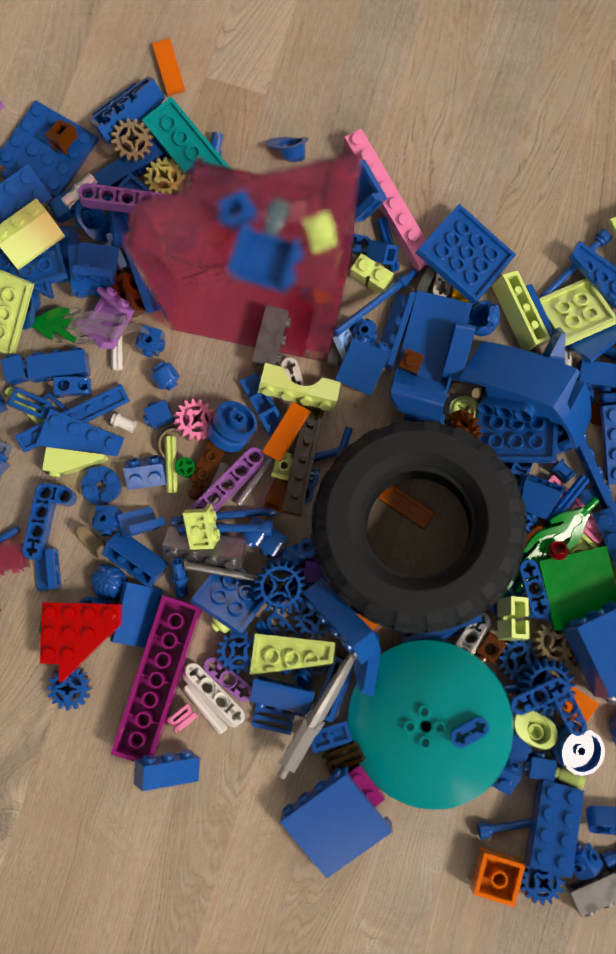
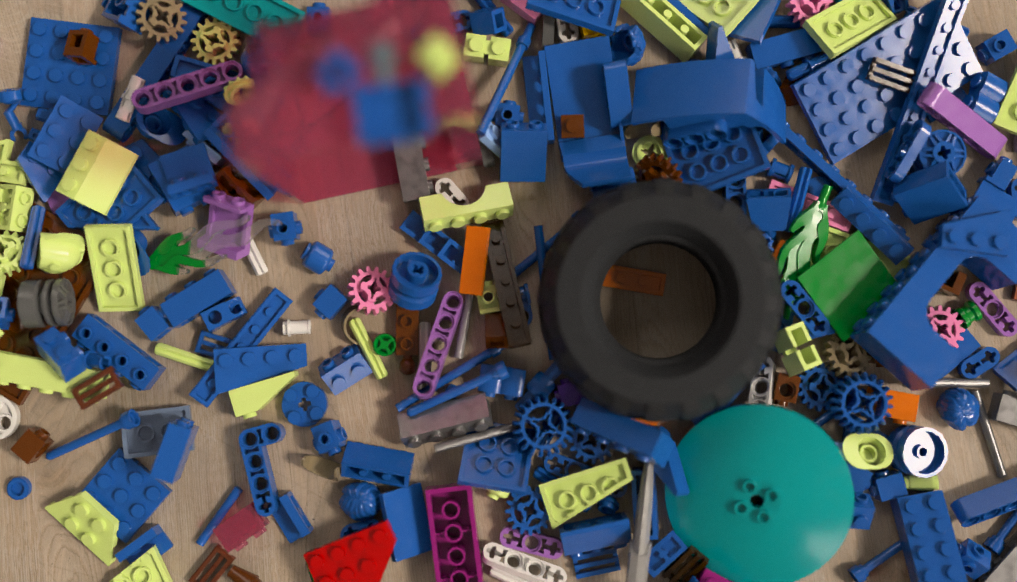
camera: 30 degrees left, 5 degrees up
(44, 410) = (207, 352): blue tile -> none
(138, 522) = (363, 424): blue panel -> none
(179, 577) = (433, 462): blue pin -> none
(201, 527) = (434, 403): yellowish green bracket -> none
(301, 548) = (545, 372): blue plate -> none
(472, 736) = (809, 490): blue beam -> none
(558, 550) = (812, 258): dark red plate -> none
(558, 698) = (876, 410): blue beam -> none

